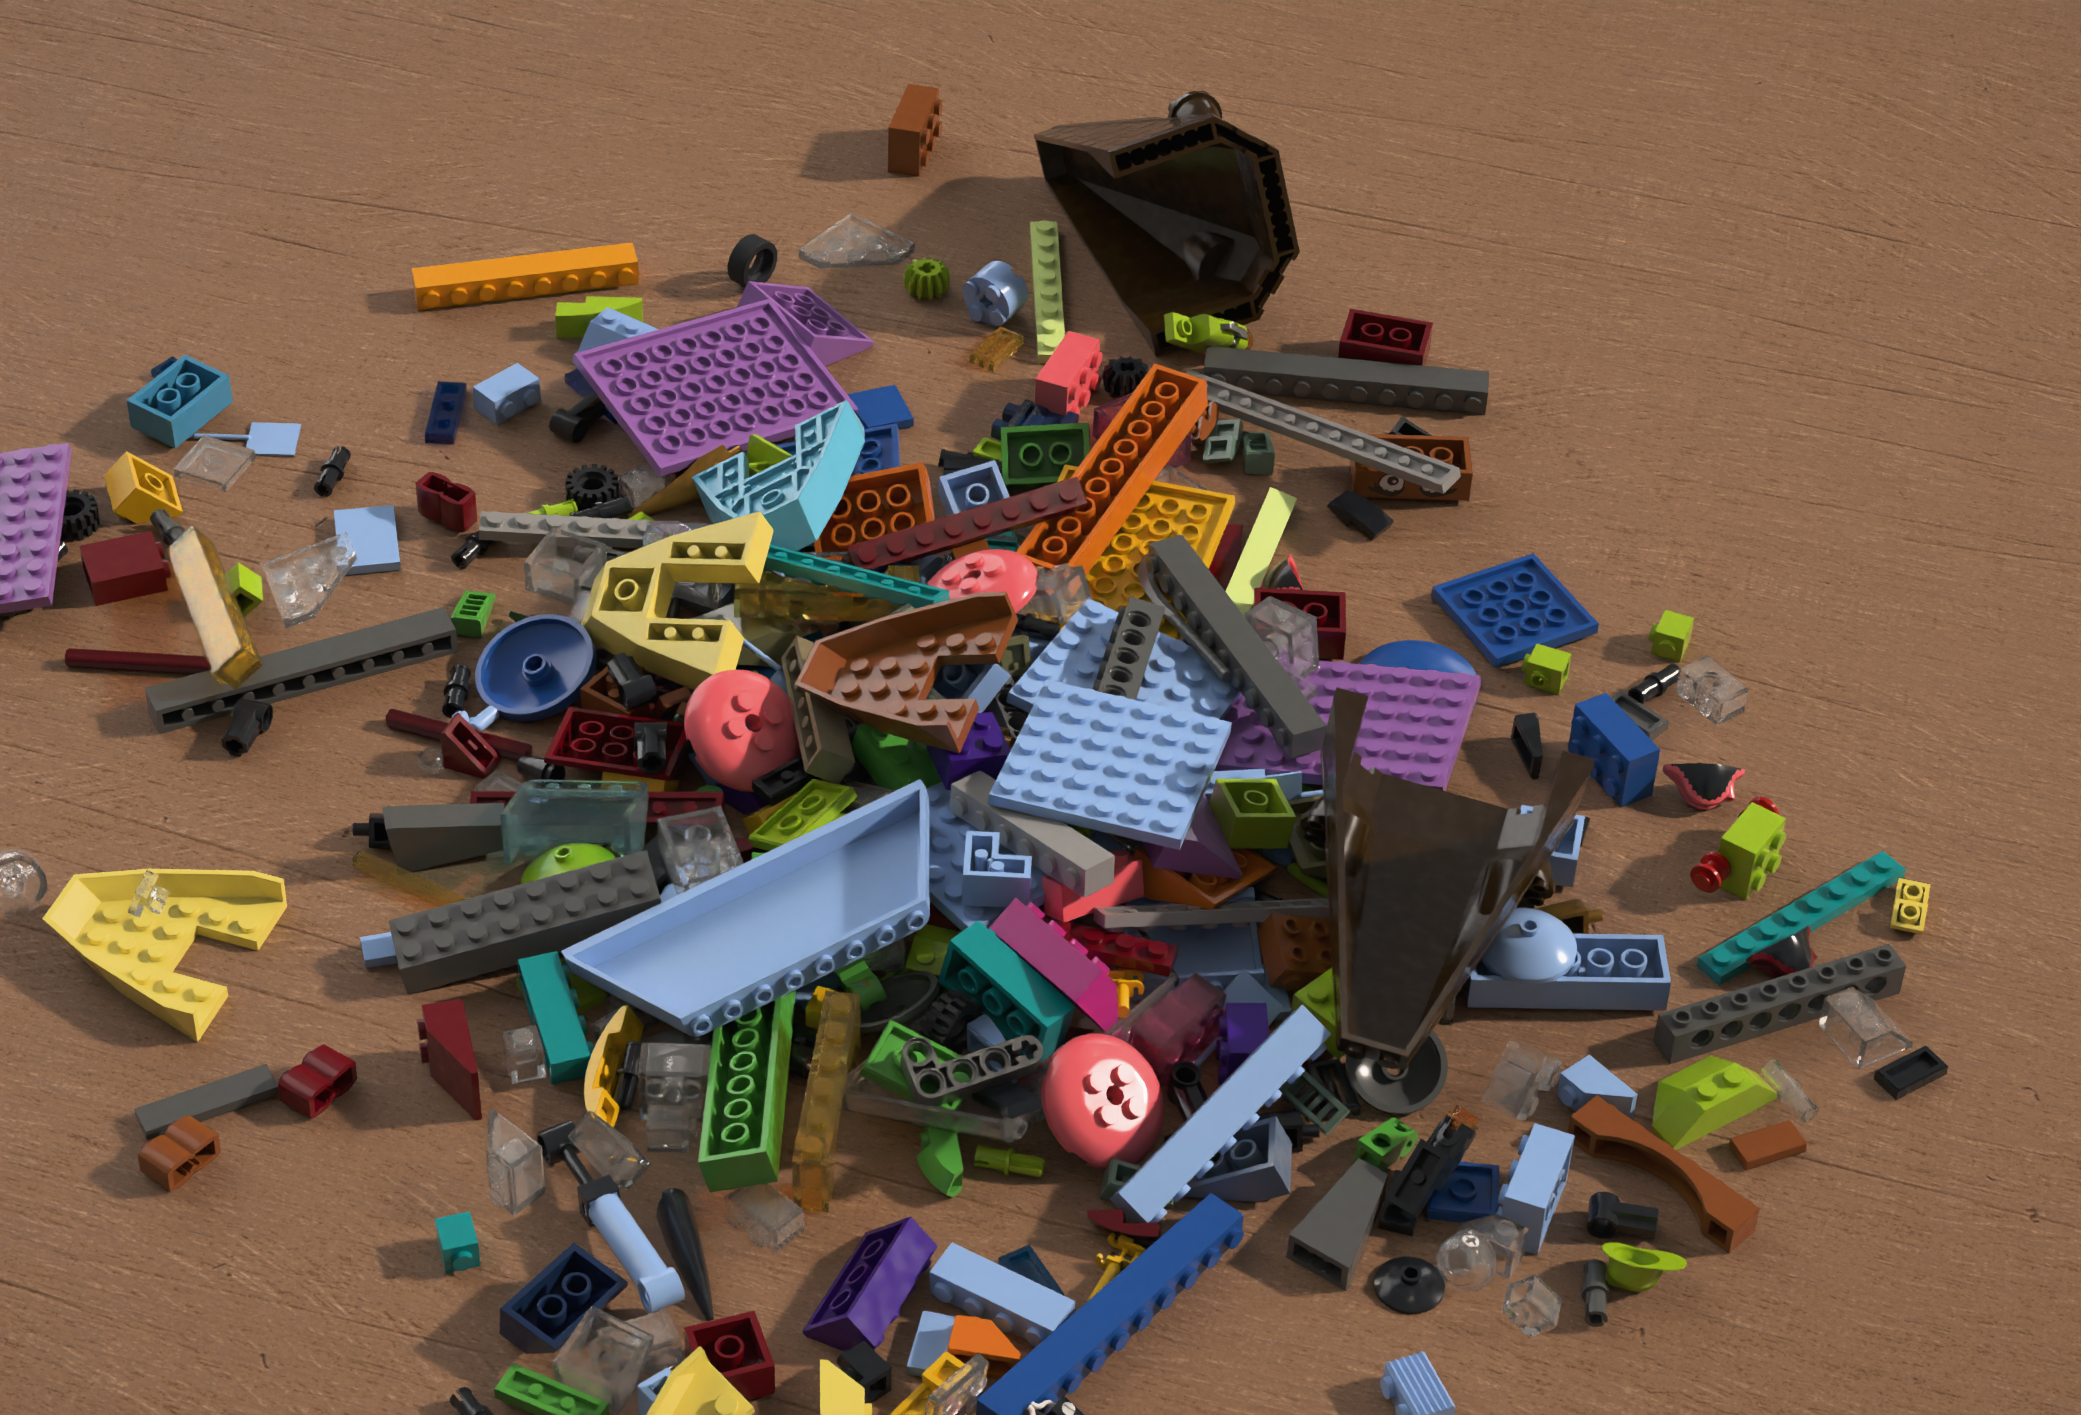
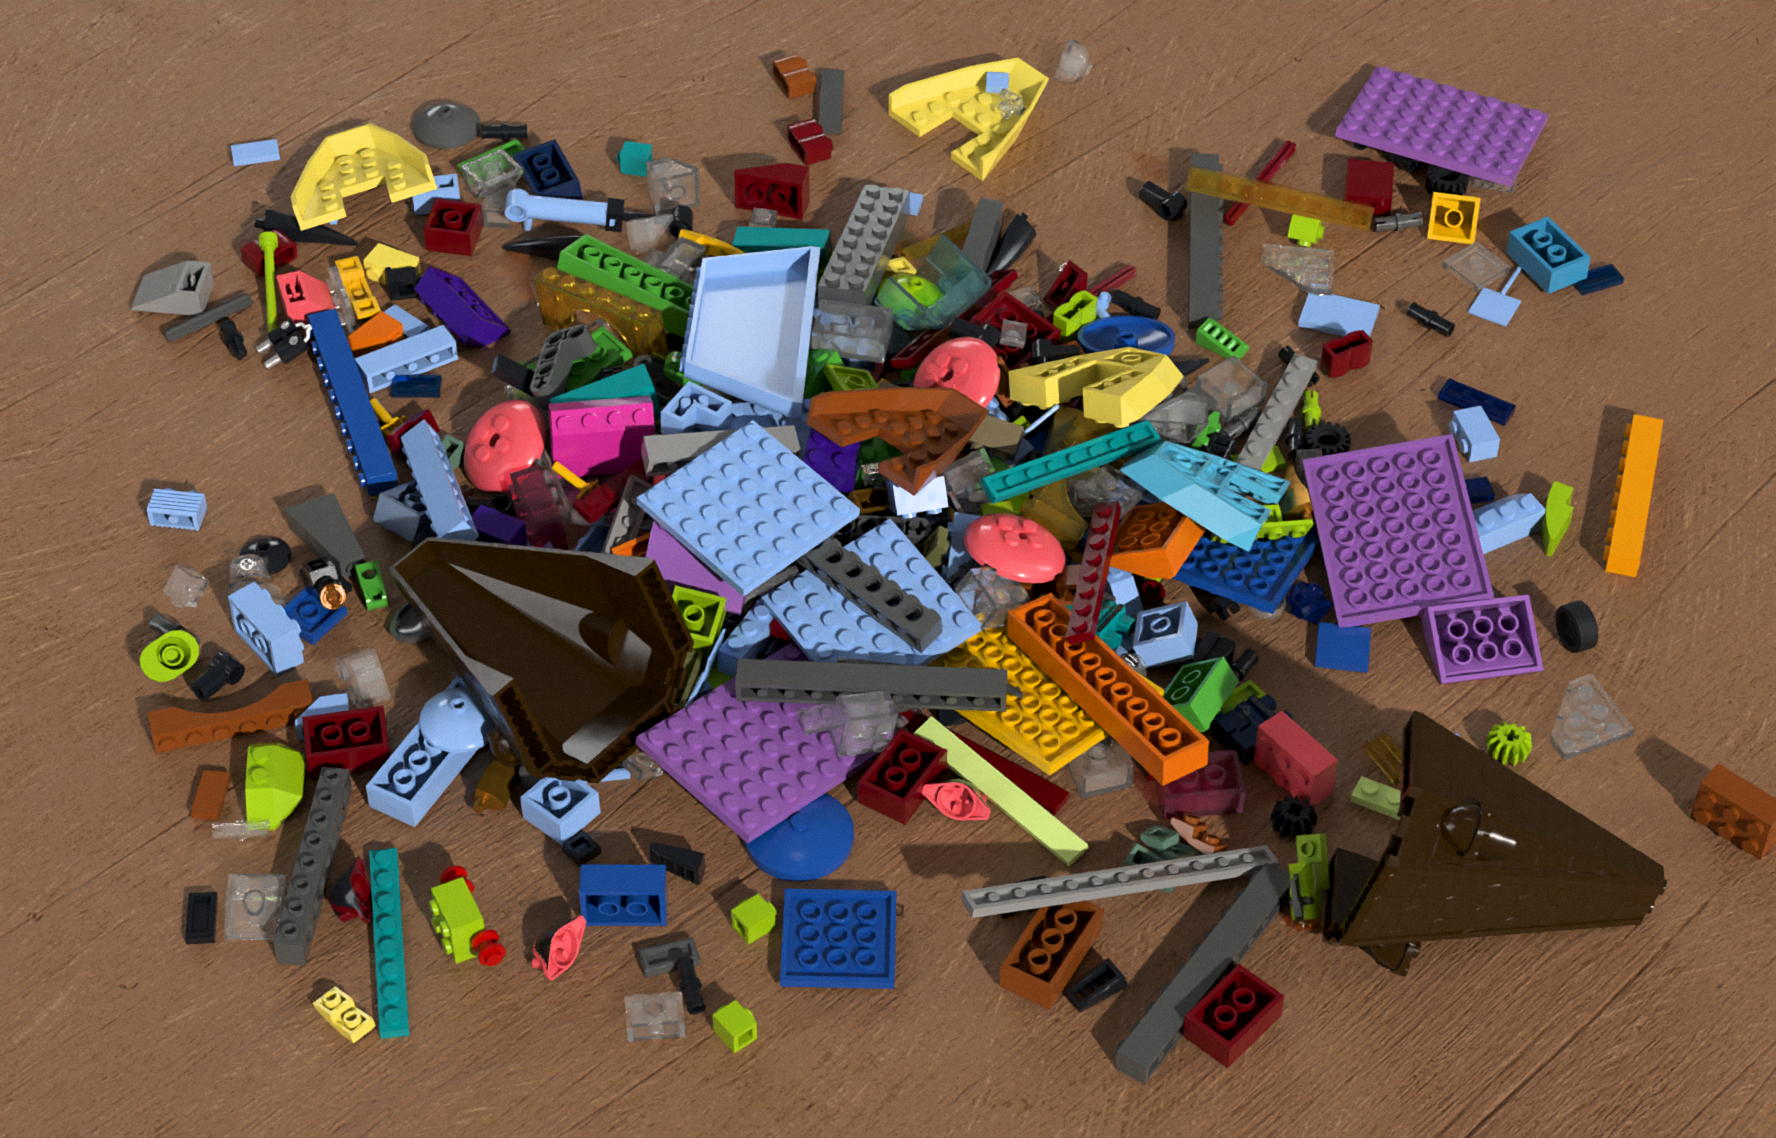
camera: 120 degrees right, 5 degrees up
(97, 931) = (996, 82): none -> light blue tile
(521, 719) = (1074, 315): none -> lime brick
(617, 723) = (1013, 333): none -> clear plate
(1619, 1042) = (346, 740): none -> dark red brick

